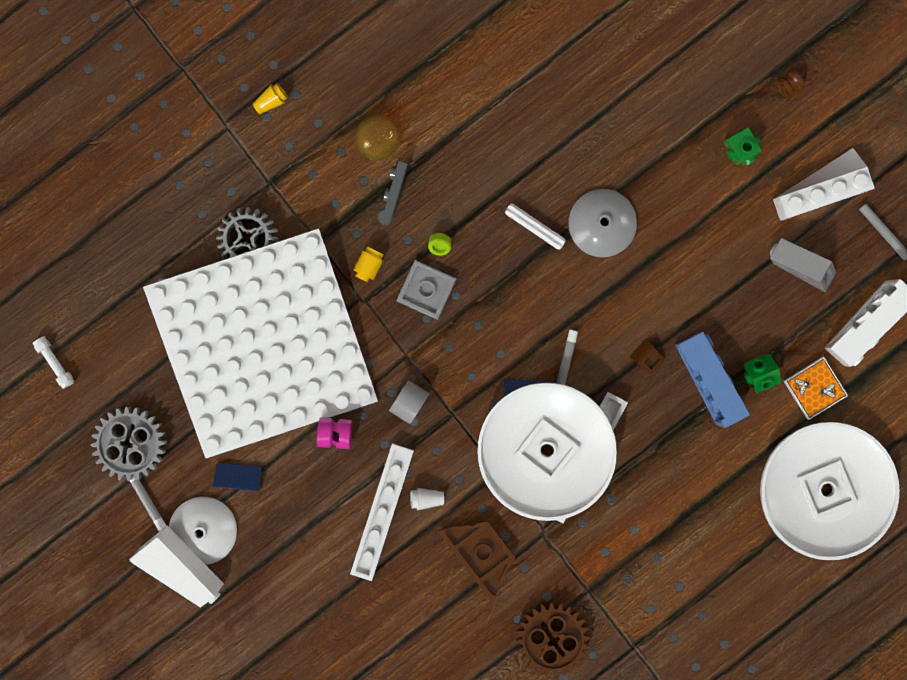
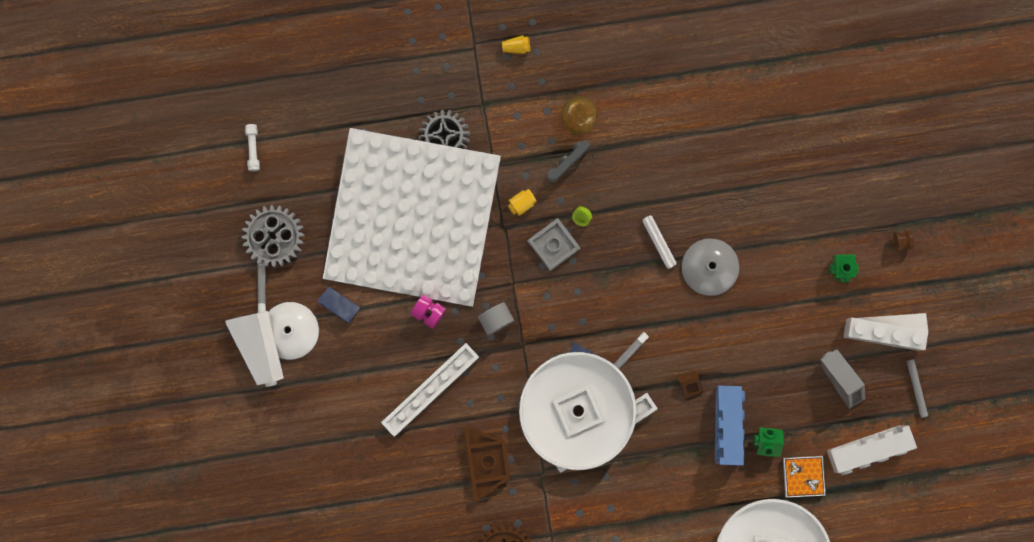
camera: 25 degrees right, 5 degrees down
(426, 498) = (468, 398): white cone -> none

